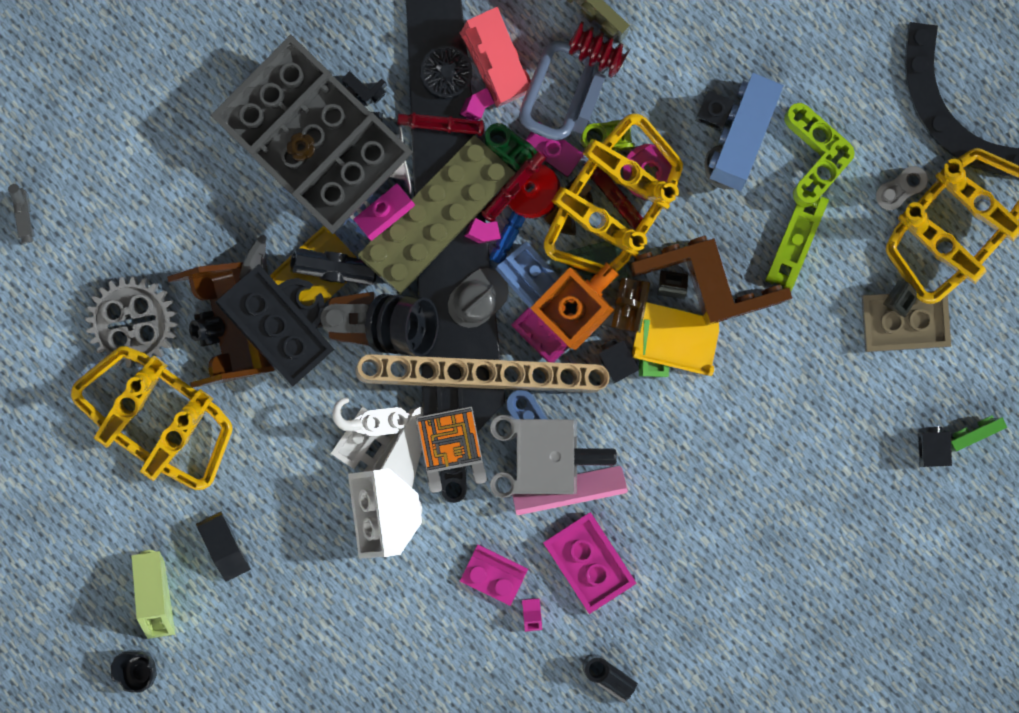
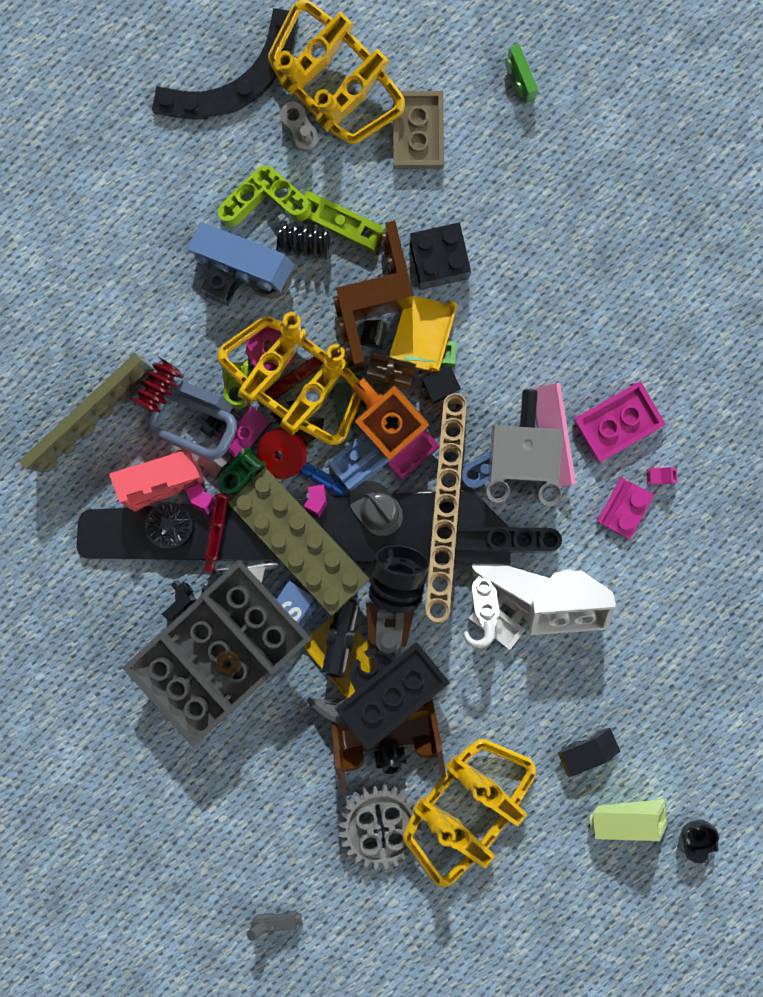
camera: 80 degrees left, 0 degrees up
(384, 212) = (293, 589): dark pink plate -> none
(448, 443) = (508, 541): flag -> none
(512, 117) = (215, 466): none -> light grey slope
(513, 187) = (277, 470): dark red piece -> none
(556, 114) = (215, 427): none -> black bracket
(611, 678) = (723, 410): black piece -> none
(763, 352) = (439, 256): none -> black piece
(771, 200) = (303, 240): none -> black piece
(901, 298) = (397, 130): pearl dark grey slope -> none
(934, 447) = (532, 111): black brick -> none

